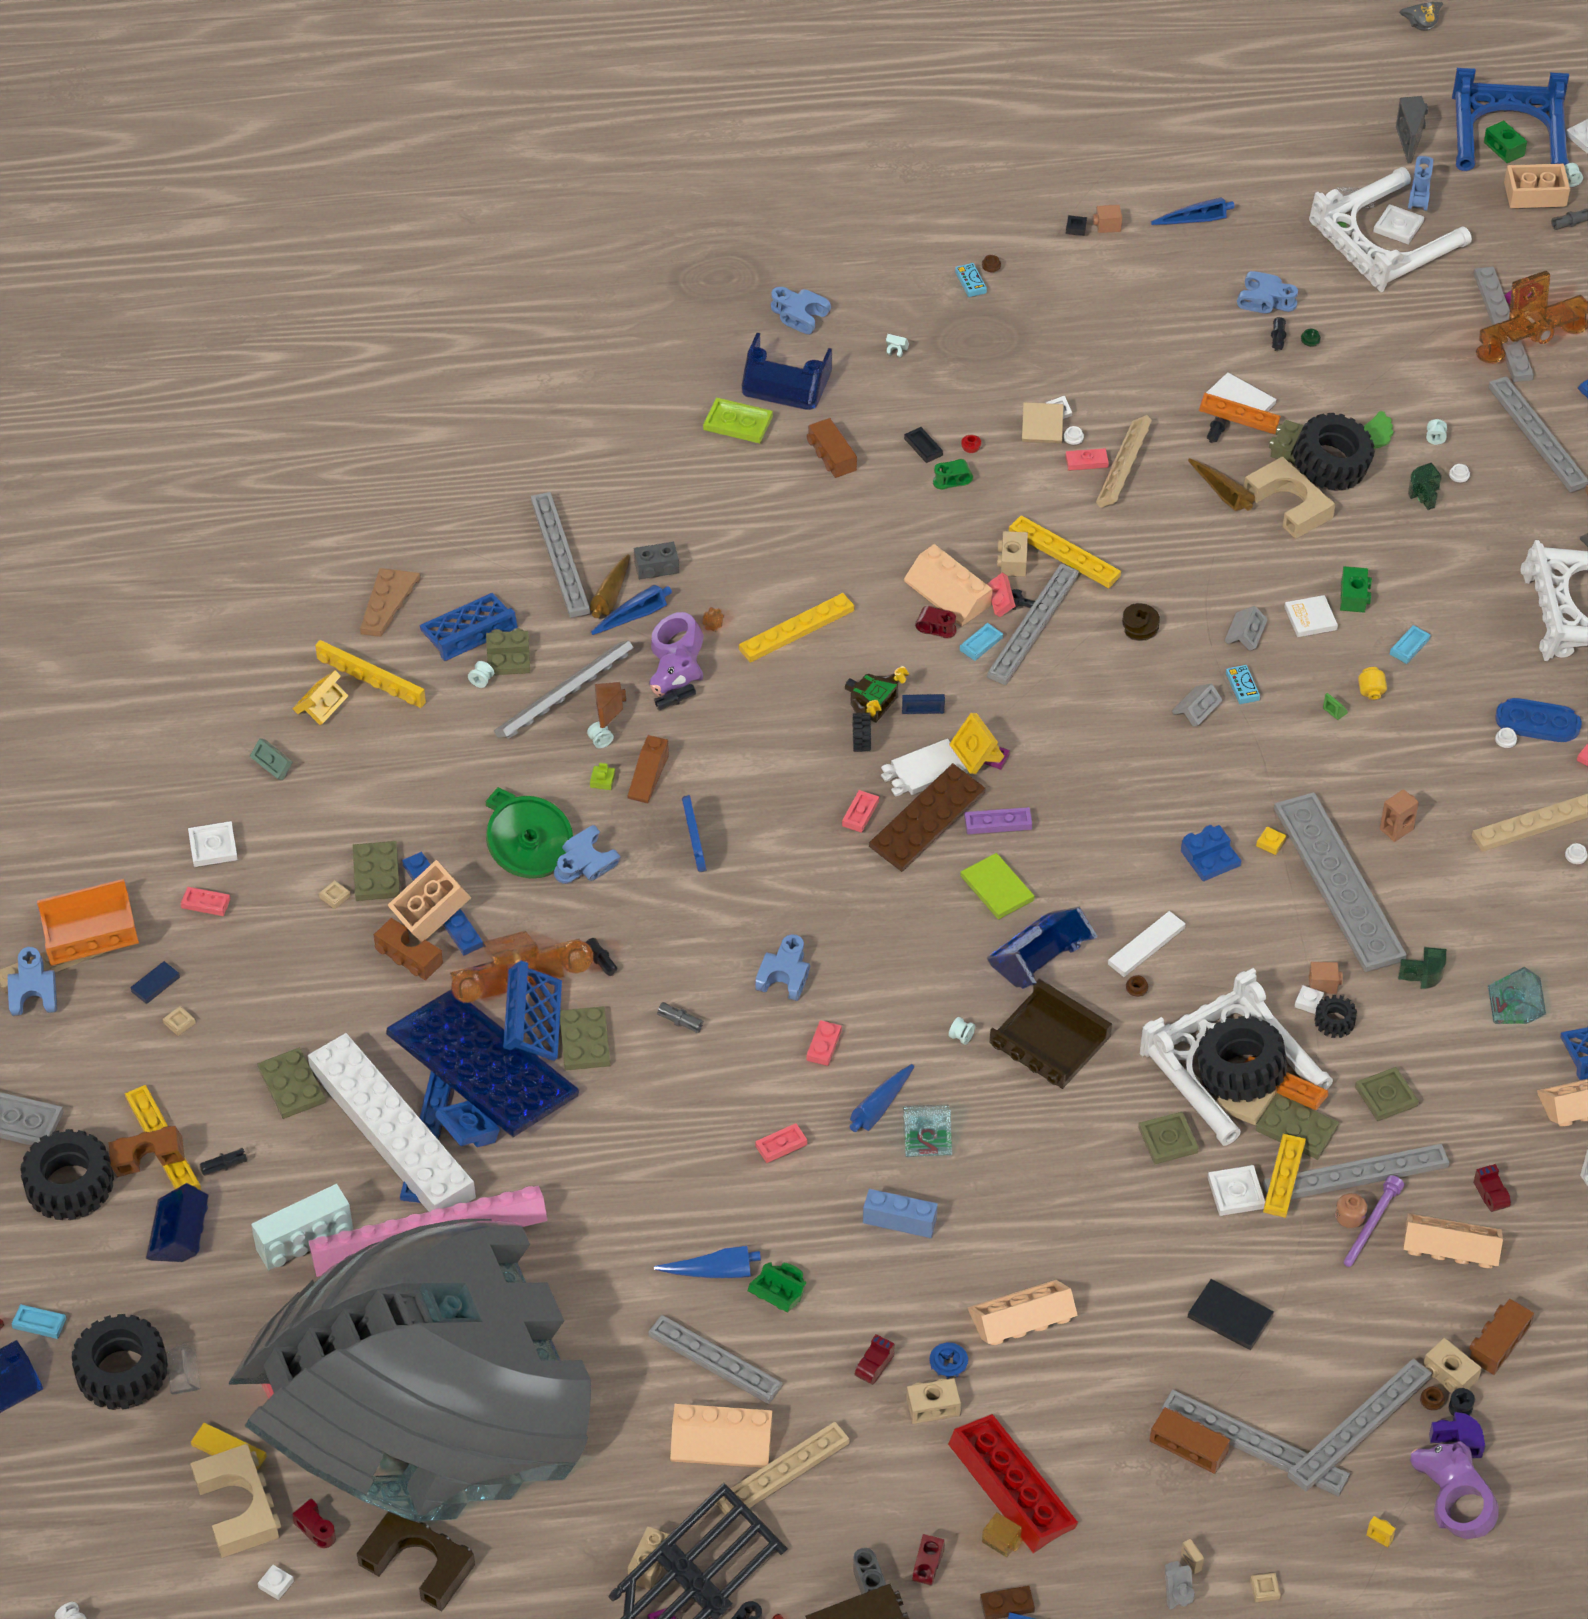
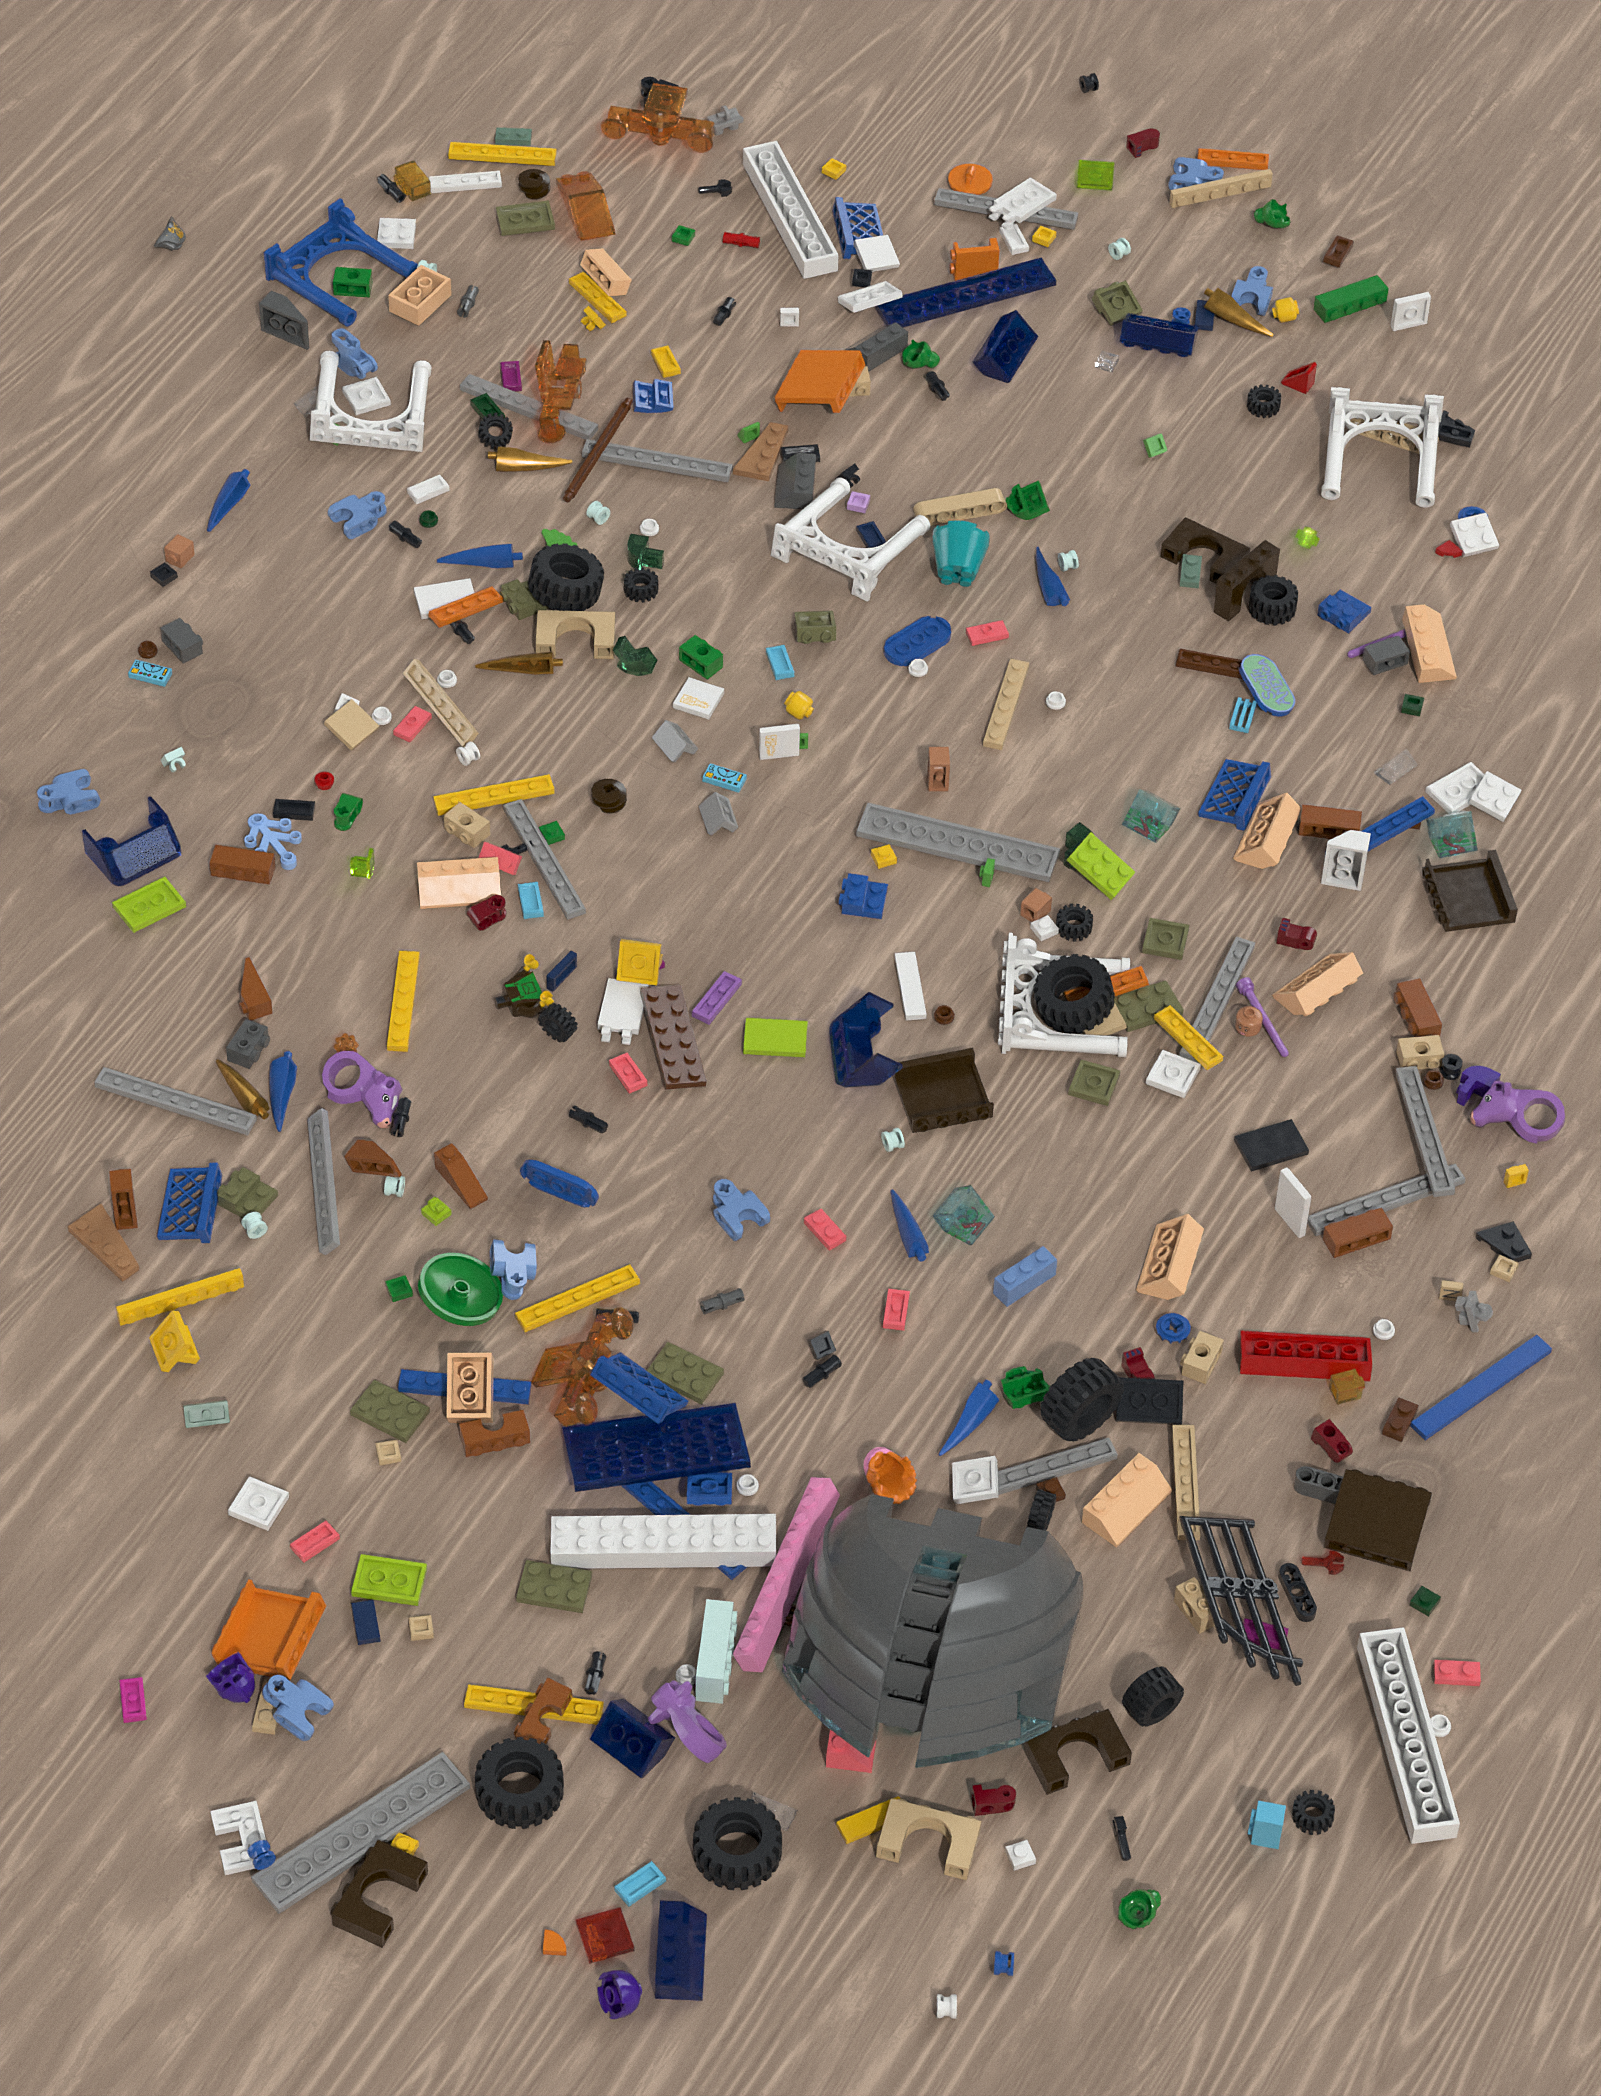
camera: 55 degrees left, 0 degrees up
(23, 930) = (233, 1679): none -> dark purple helmet
(206, 971) = (389, 1580): none -> lime plate
(217, 1235) = (697, 1733): none -> medium lavender animal
(421, 577) = (123, 1199): none -> dark orange brick
(503, 1150) = (747, 1485): none -> white plate
(510, 1579) = (1152, 1696): none -> black tyre
(591, 1241) = (890, 1474): none -> orange hair
(598, 921) = (577, 1298): none -> yellow tile
(644, 1308) = (975, 1480): none -> white plate
(648, 1376) = (1041, 1510): none -> black tyre
(668, 1130) = (822, 1371): none -> black axle
(686, 1374) = (1052, 1486): none -> reddish brown plate
(694, 1112) = (821, 1345): none -> black plate
(709, 532) = (254, 996): none -> dark orange slope
(783, 1328) = (1082, 1399): none -> black tyre
(786, 815) = (588, 1119): none -> black axle
(846, 1388) = (1151, 1401): none -> black tile
(885, 433) = (260, 823): none -> light blue plant
(907, 519) = (363, 866): none -> clear neon green panel
(1018, 274) = (182, 640): none -> dark grey brick
(1065, 612) = (552, 832): none -> green plate
(1087, 509) = (468, 753): none -> white wheel
(1098, 1528) = (1384, 1329): none -> white plate
(1155, 450) = (447, 679): none -> white plate
(1161, 1363) = (1293, 1202): none -> white tile
(1298, 1571) = (1506, 1241): none -> black wing
(1300, 548) = (632, 660): none -> clear green brick
(1311, 691) = (779, 741): none -> white tile
(1312, 396) = (488, 556): none -> blue piece
(1326, 921) = (987, 872): none -> bright green plate
(1343, 319) = (428, 489): none -> white tile
(1390, 513) = (641, 577): none -> black tyre
(1415, 995) = (1101, 866): none -> lime plate
(1434, 350) = (519, 460): none -> pearl gold piece
(1447, 327) = (495, 420): none -> black tyre
(1468, 300) = (485, 405): none -> dark green plate
(1471, 641) = (815, 626): none -> olive plate
(1499, 388) = (597, 450): none -> reddish brown piece

